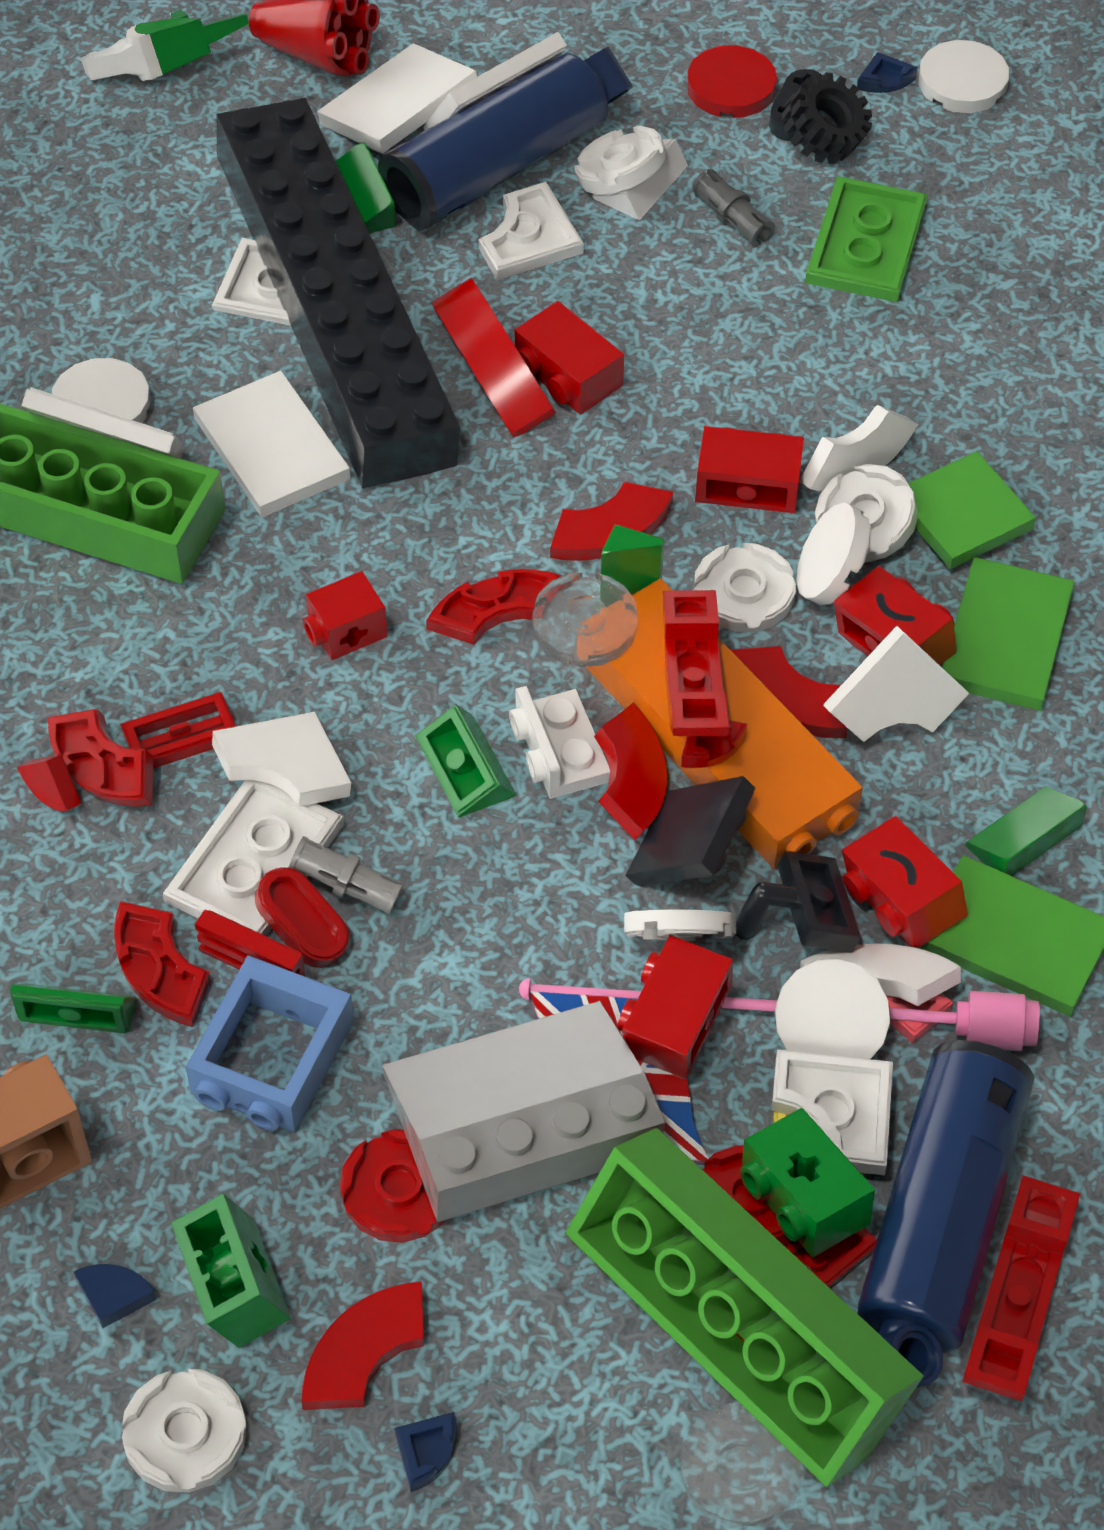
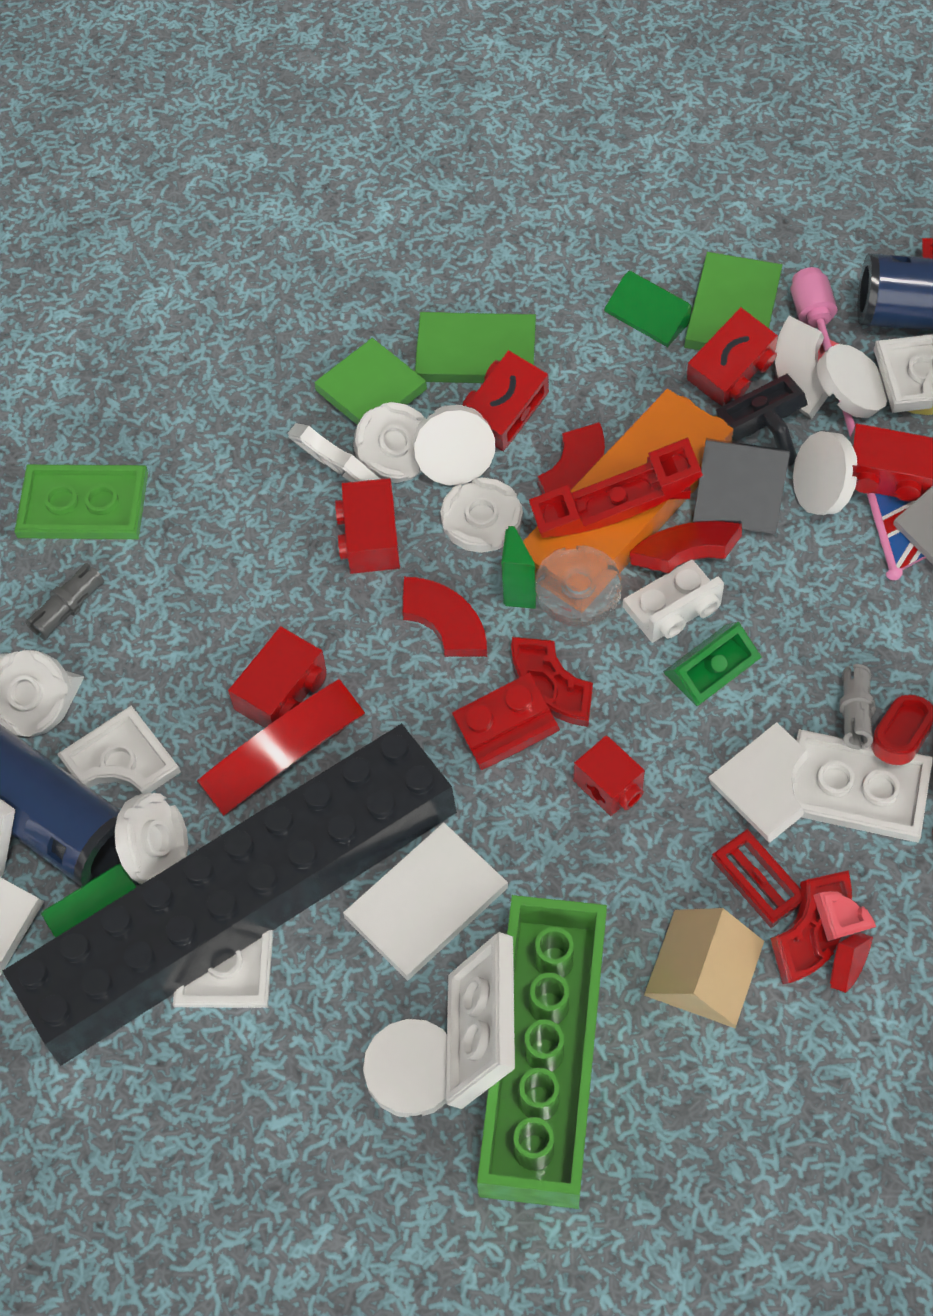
camera: 100 degrees left, 5 degrees up
(94, 775) = (841, 915): none -> coral tile
(96, 655) = (706, 964): none -> tan slope
(408, 221) = (149, 836): none -> white tile
(451, 544) = (505, 721): none -> red plate
(895, 687) = (574, 388): white tile -> none

